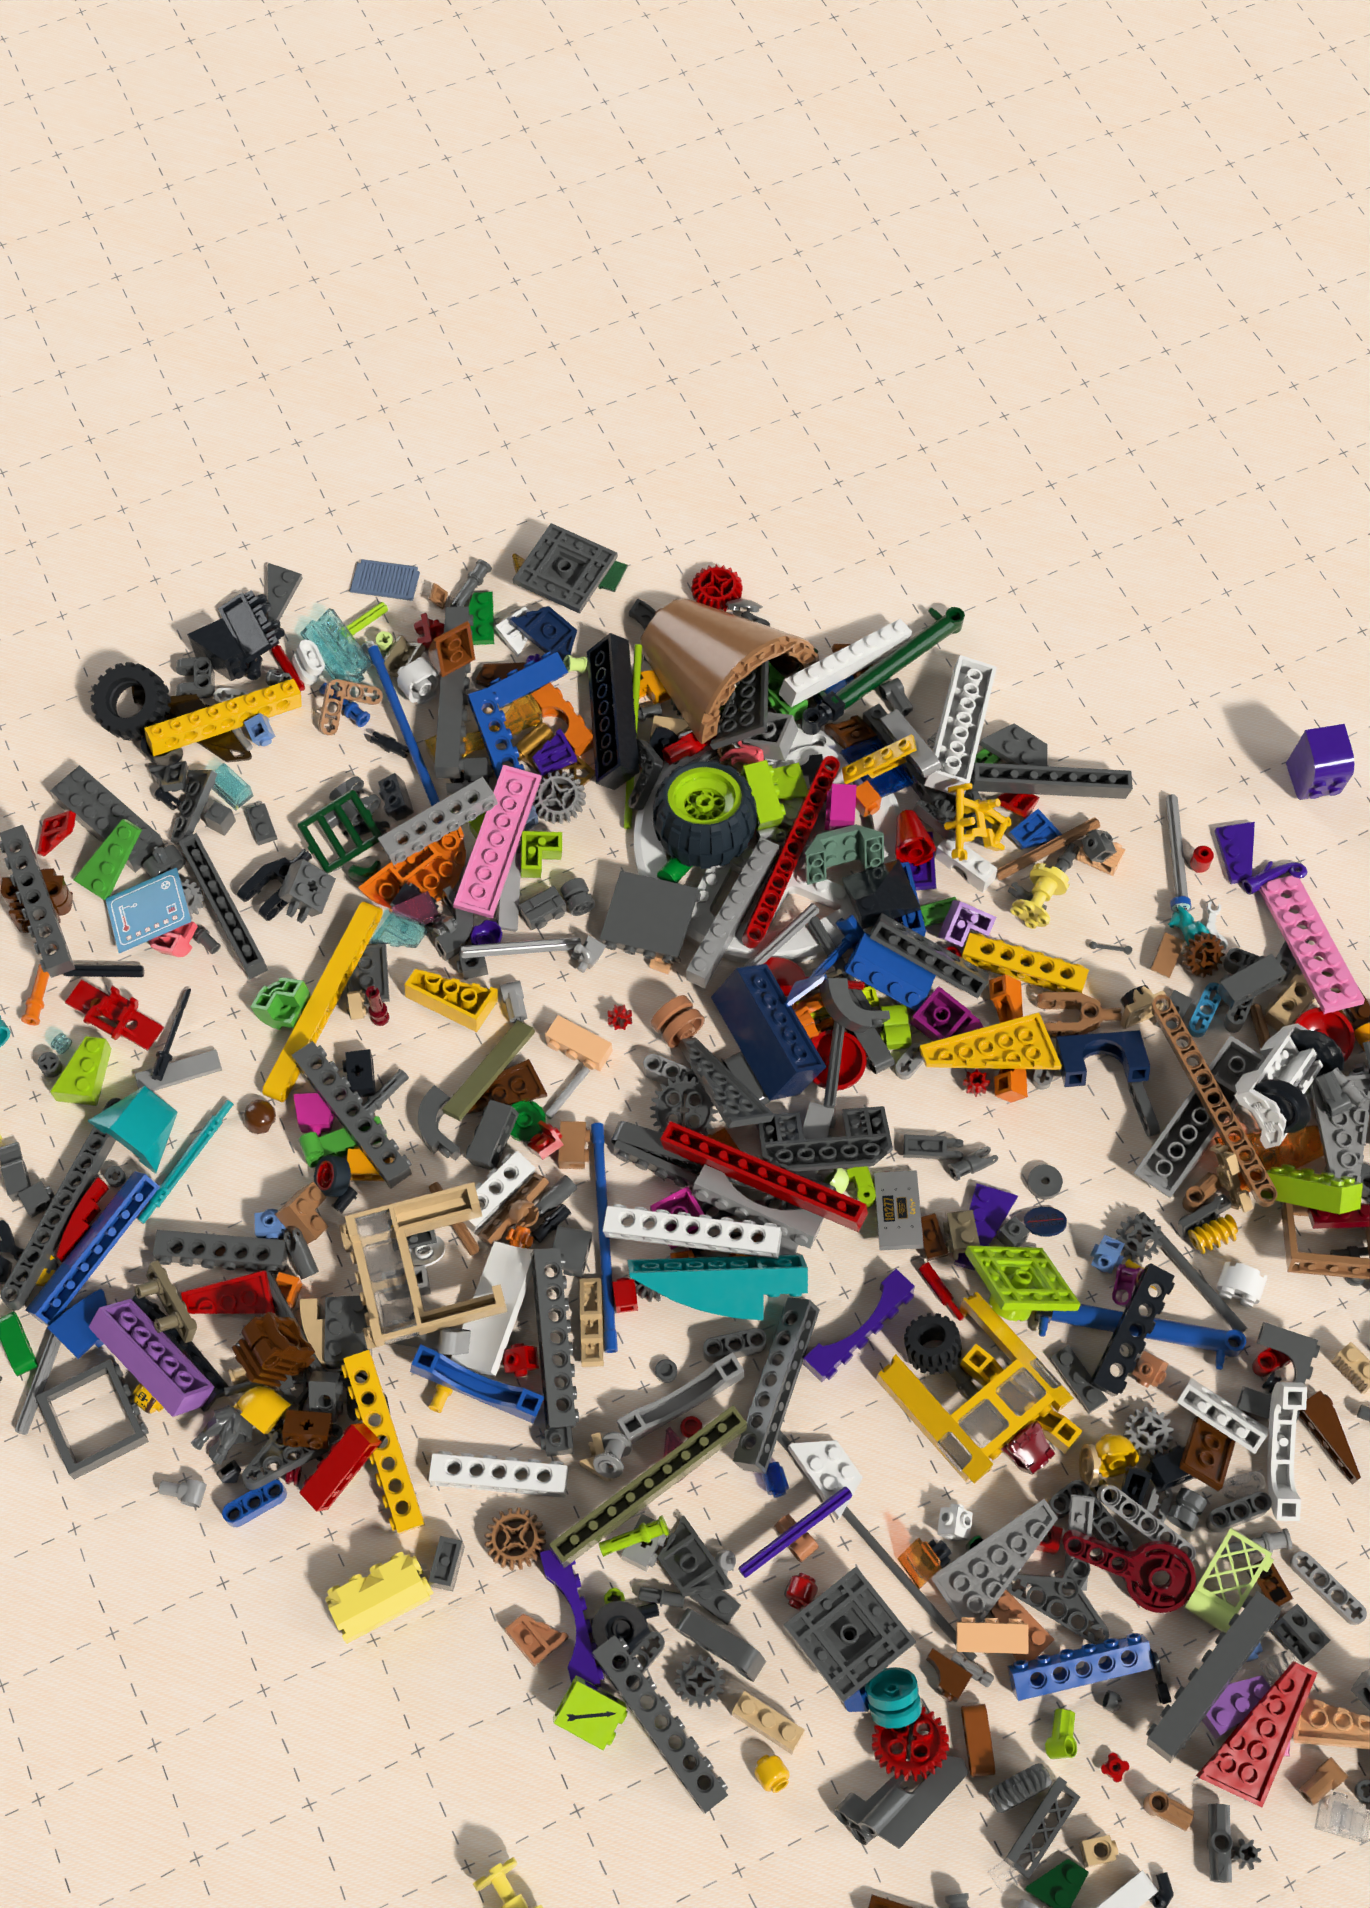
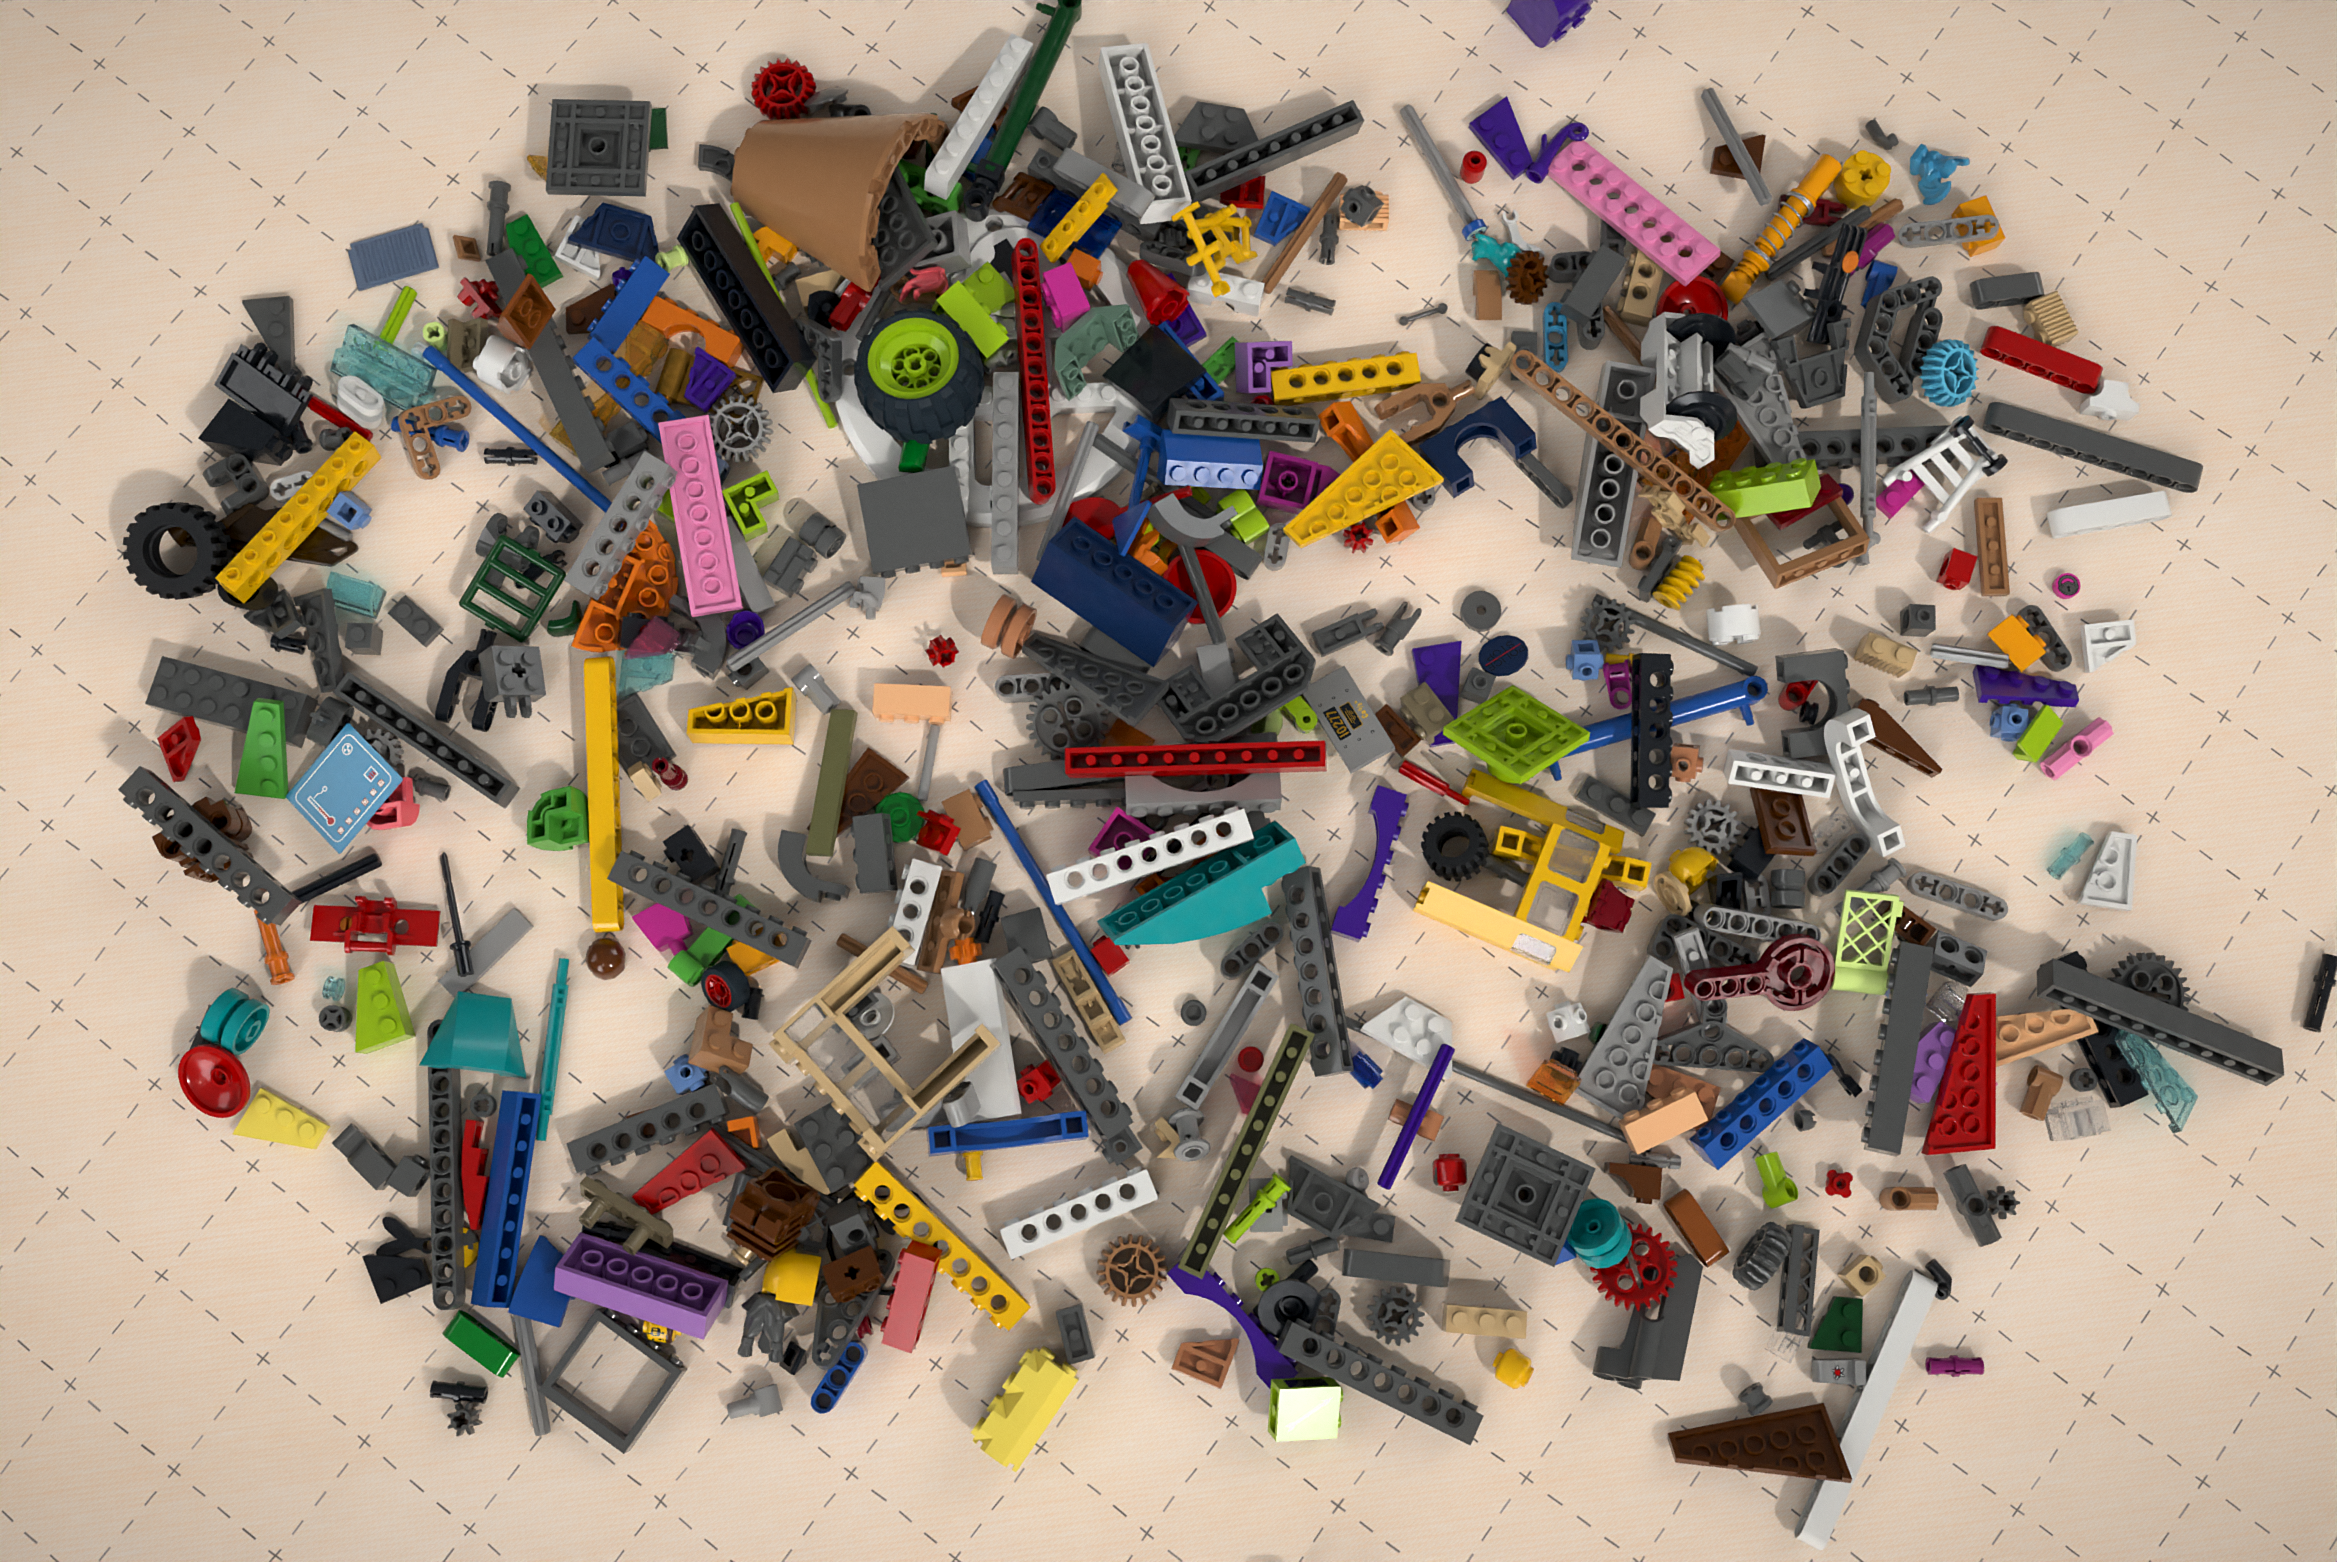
camera: 30 degrees left, 15 degrees up
(1046, 883) = (1324, 275): light yellow piece -> none

